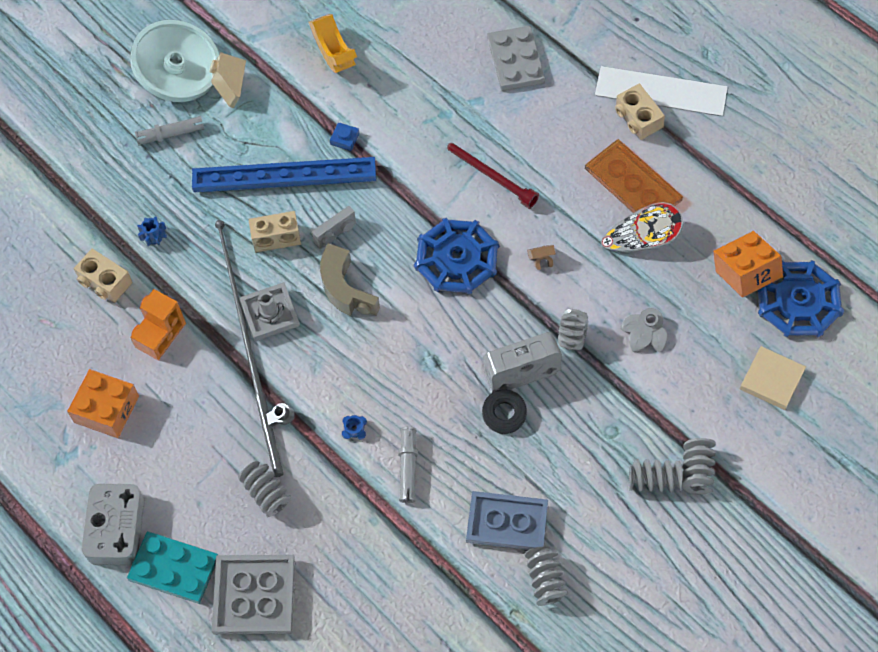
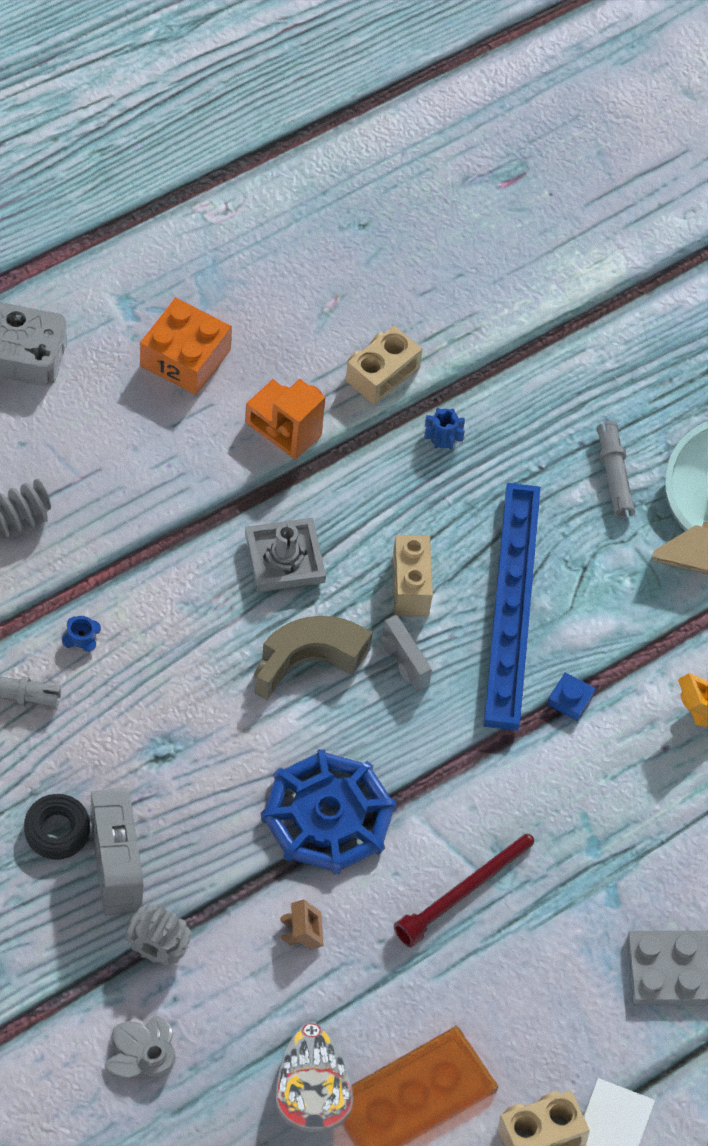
camera: 90 degrees right, 5 degrees down
(281, 413) = (121, 545): dark grey piece -> none

